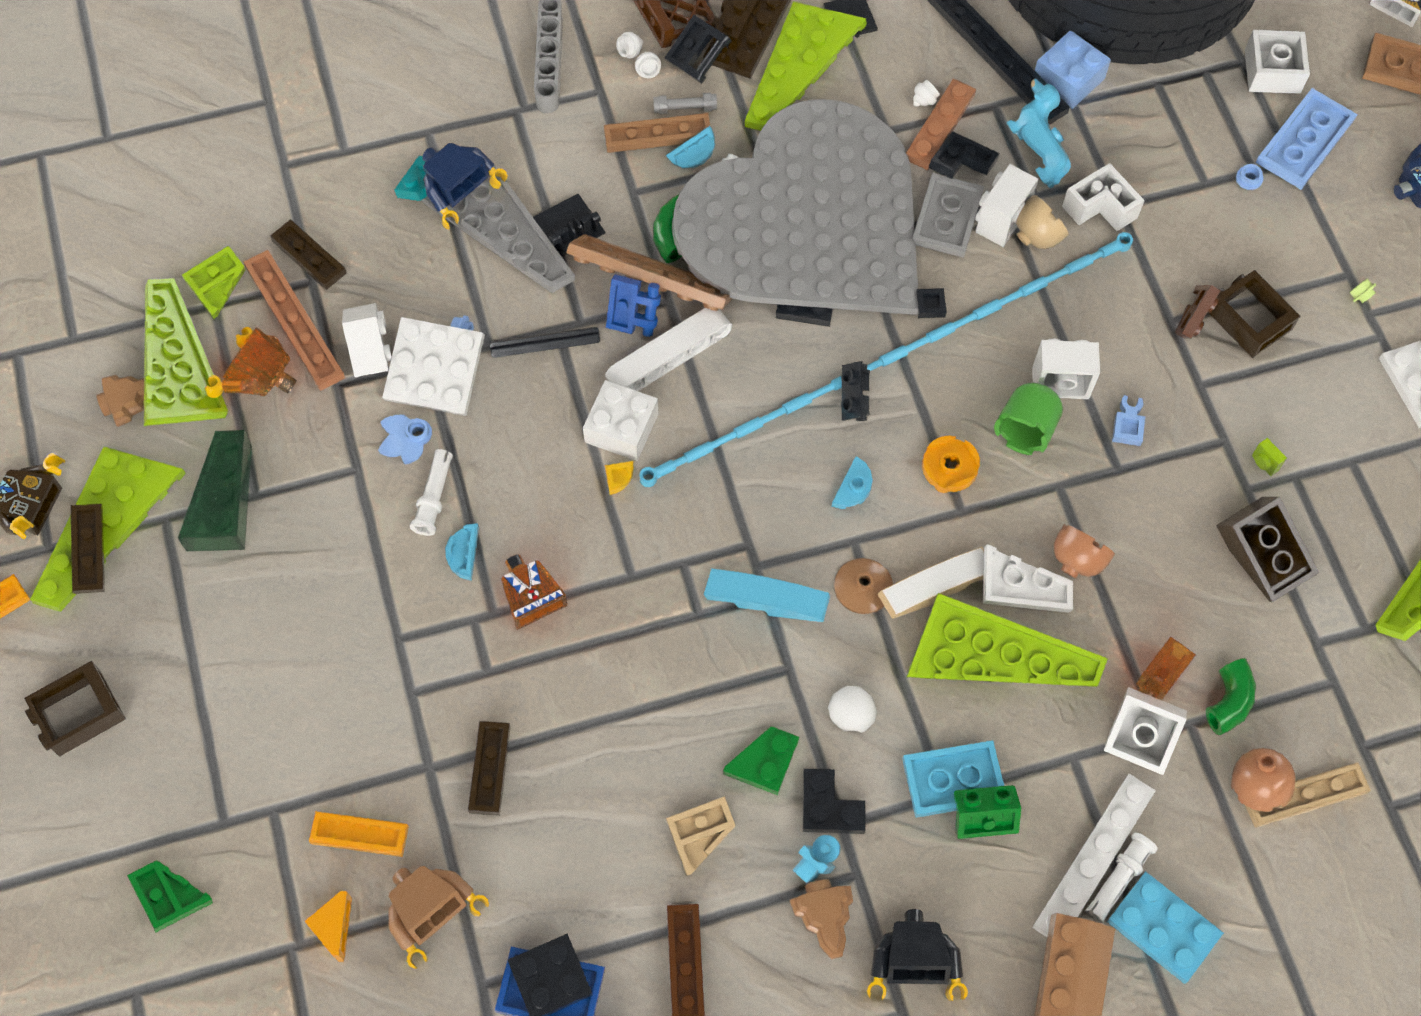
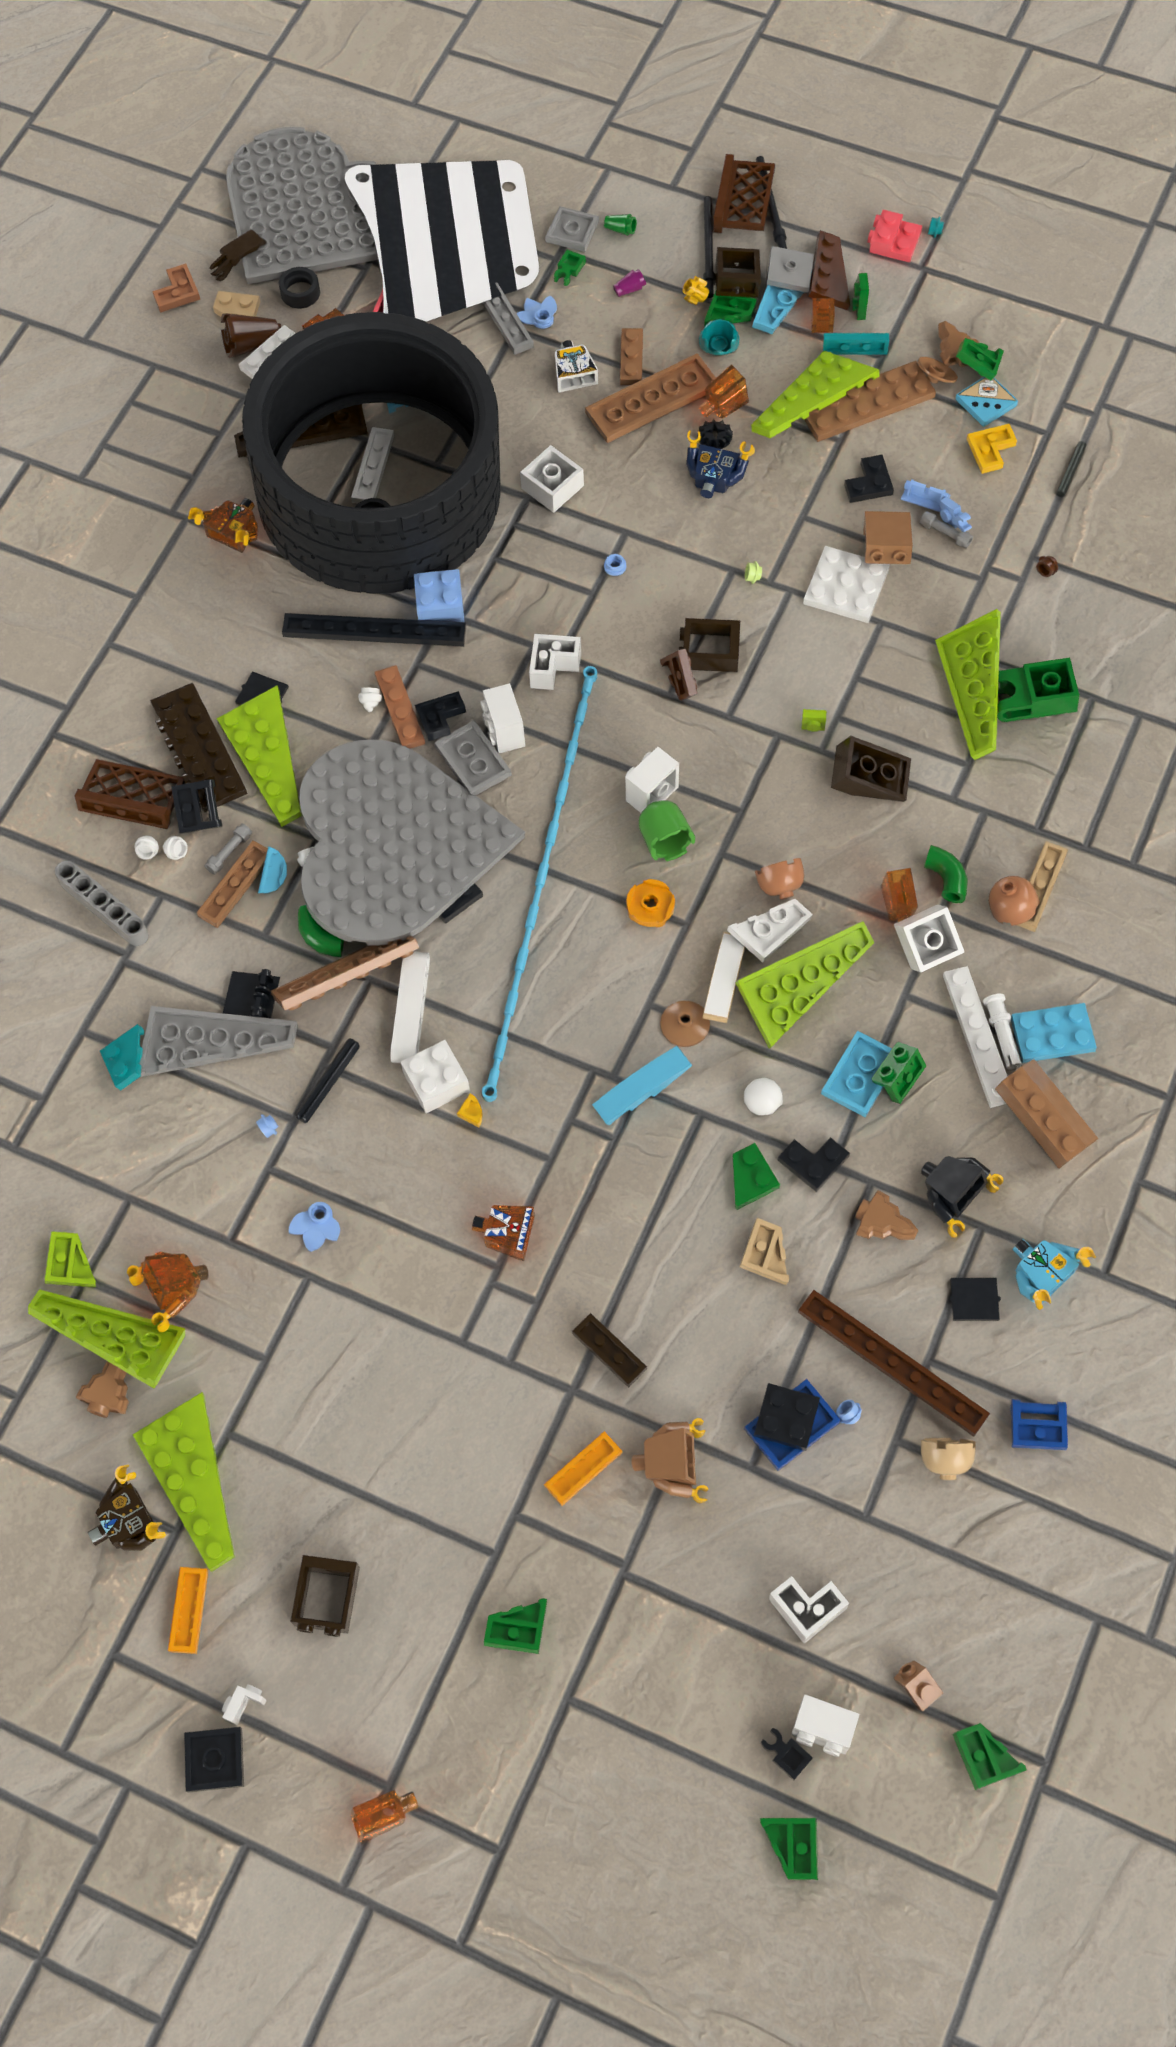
camera: 45 degrees left, 0 degrees up
(87, 548) = (210, 1499): dark brown plate -> none
(220, 499) = (254, 1382): clear green wedge -> none
(294, 320) = (152, 1231): nougat plate -> none
(308, 254) = (108, 1183): dark brown plate -> none
(332, 924) = (634, 1532): light orange slope -> none
(363, 334) = (219, 1191): white brick -> none
(429, 504) = (382, 1246): white pin -> none
(433, 366) = (280, 1165): white plate -> none
(455, 174) = (150, 1036): dark blue torso -> none
(462, 550) = (437, 1252): medium azure plate -> none
(624, 303) = (352, 1006): blue plate -> none
(817, 858) = (846, 1194): medium azure hips -> none
(855, 381) = (548, 918): black hinge -> none
(855, 486) = (612, 971): medium azure plate -> none
(931, 303) = (527, 821): black plate -> none
(1039, 136) = (470, 657): medium azure animal -> none
(1039, 225) = (537, 711): tan cylinder -> none
(1128, 424) = (720, 779): light blue plate -> none
(1306, 138) = (619, 510): light blue plate -> none

